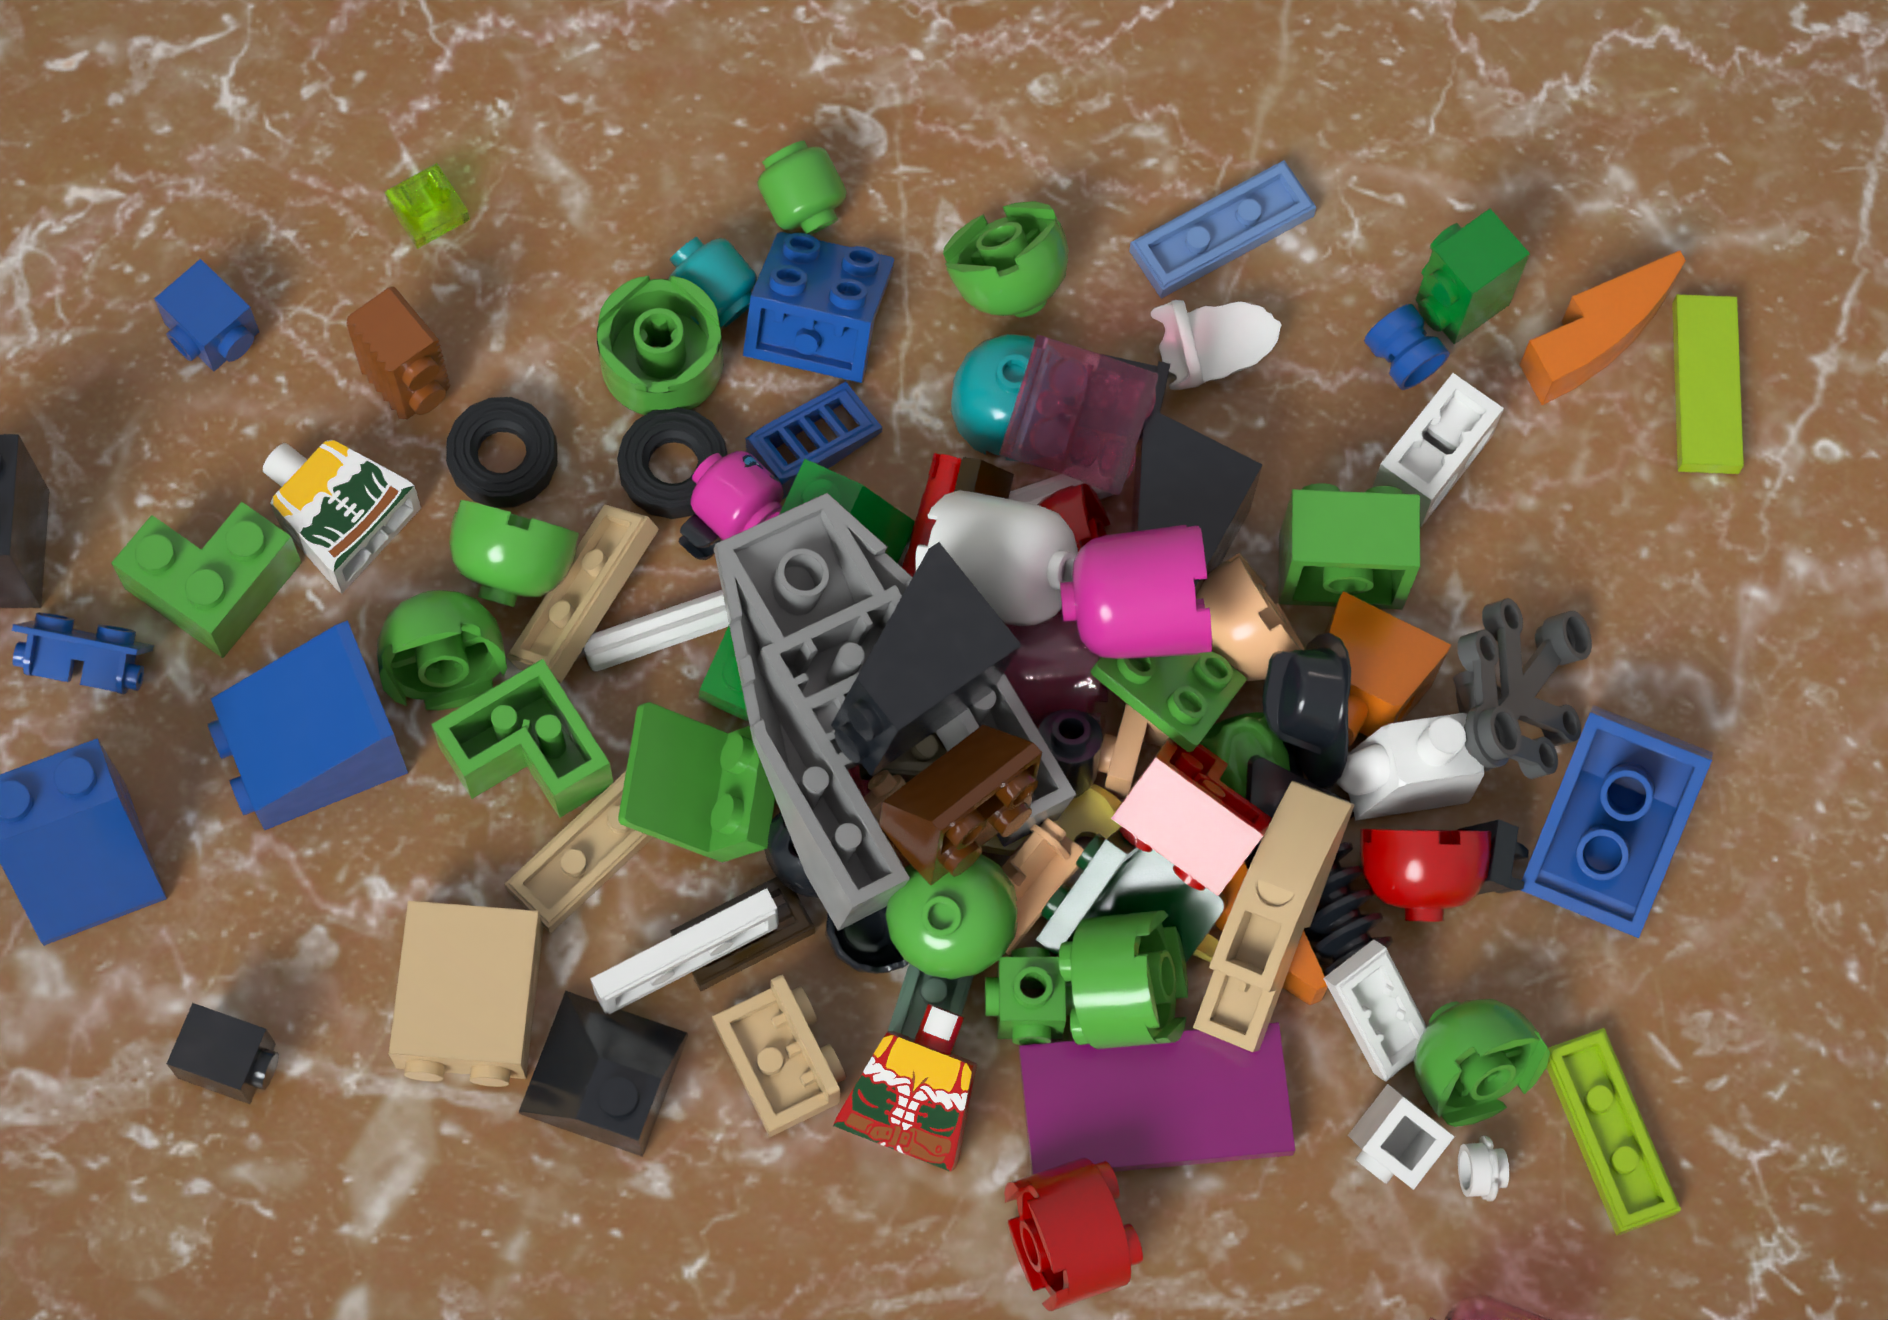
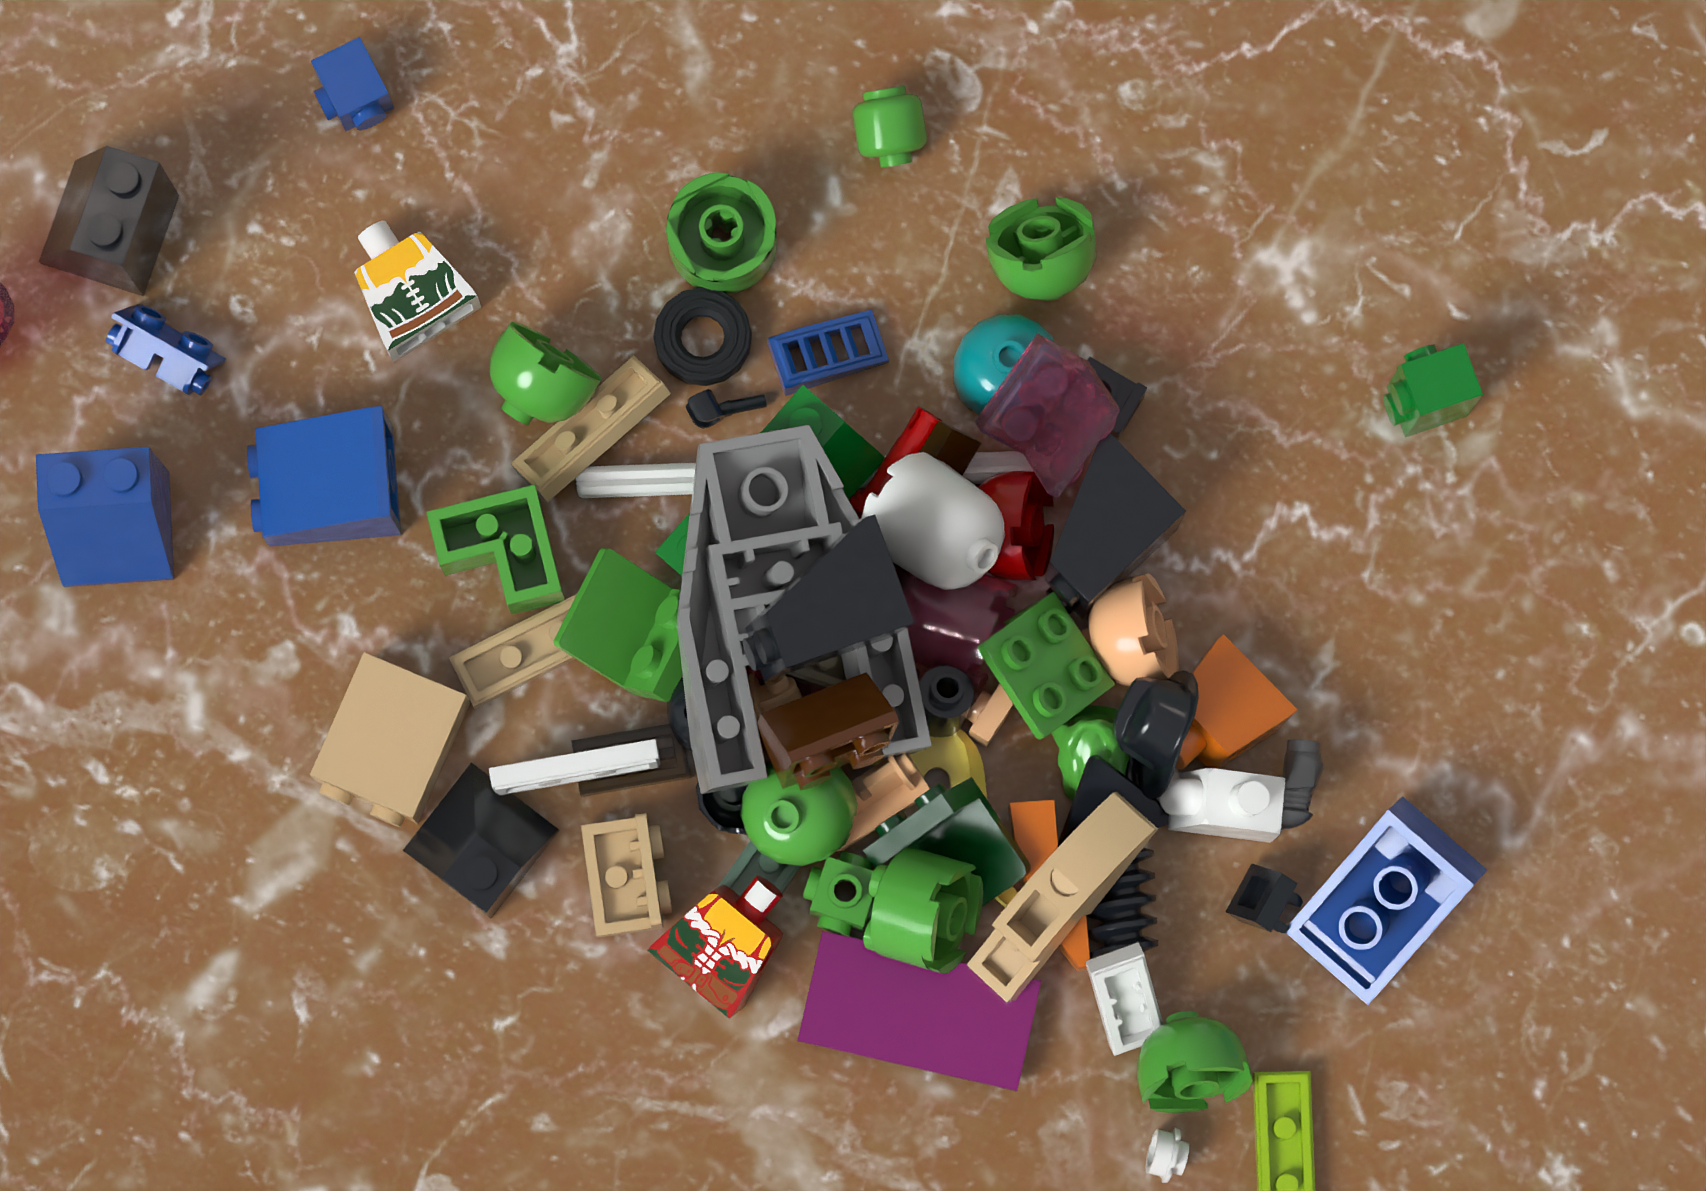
camera: 20 degrees right, 10 degrees up
(211, 589) = (290, 330): bright green brick -> none
(223, 1054) = (179, 730): black brick -> none
(399, 354) = (499, 175): dark orange brick -> none
(427, 205) = (568, 39): clear neon green tile -> none
(439, 650) = (456, 442): bright green cylinder -> none
(488, 418) = (559, 249): black tyre -> none
(719, 273) = (789, 184): teal head -> none
(734, 493) = (742, 390): dark pink head -> none
(816, 305) = (869, 233): blue bracket -> none
(1072, 1232) = (811, 1099): red brick -> none
(1139, 594) = (1037, 600): dark pink cylinder -> none
(1191, 817) = (1020, 794): brick -> none
(1213, 340) = (1196, 373): white piece -> none
(1222, 229) = (1241, 272): medium blue tile -> none
(1350, 545) = (1241, 597): bright green brick -> none
(1398, 1139) = (1104, 1109): white brick -> none
(1404, 342) = (1358, 425): blue wheel -> none
(1425, 868) = (1207, 891): red cylinder -> none
(1440, 444) = (1349, 533): white brick -> none
(1492, 724) = (1297, 800): dark grey plant -> none
(1598, 328) = (1533, 466): orange slope -> none
(1707, 384) = (1609, 543): lime tile -> none

